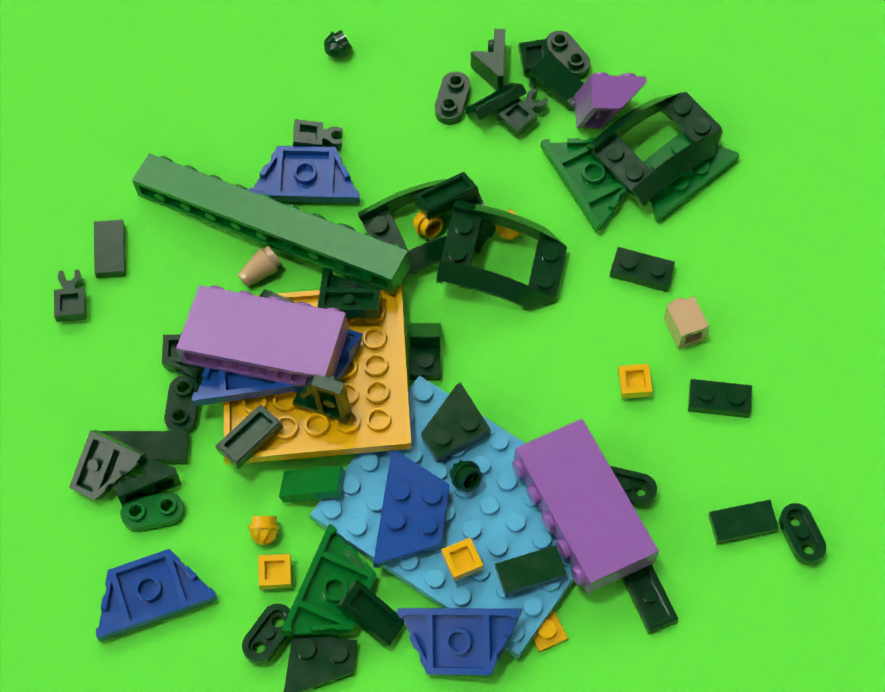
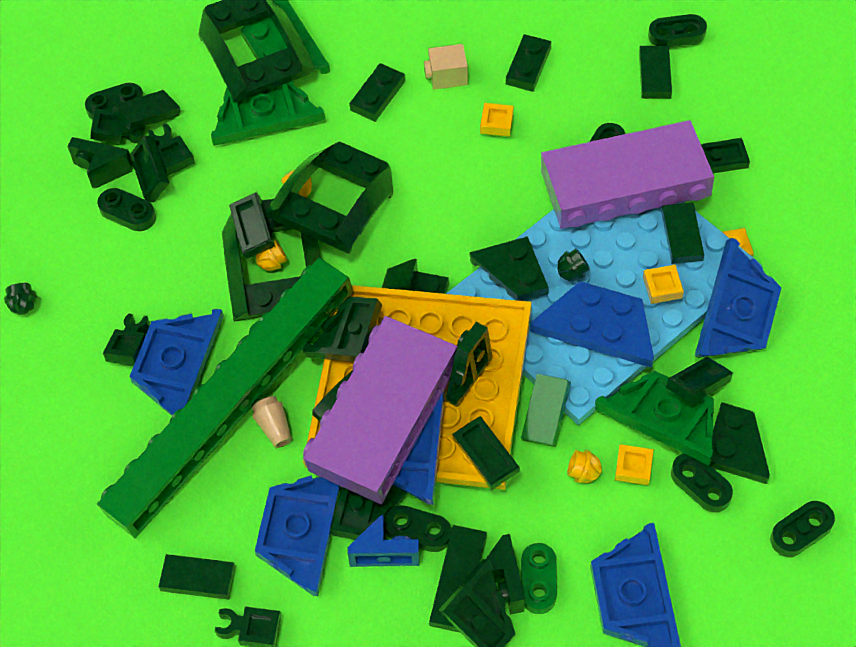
camera: 75 degrees left, 5 degrees down
(153, 310) = (298, 529): none -> blue wing
(155, 375) = (373, 549): none -> blue slope
(604, 98) = (191, 69): medium lavender slope -> none

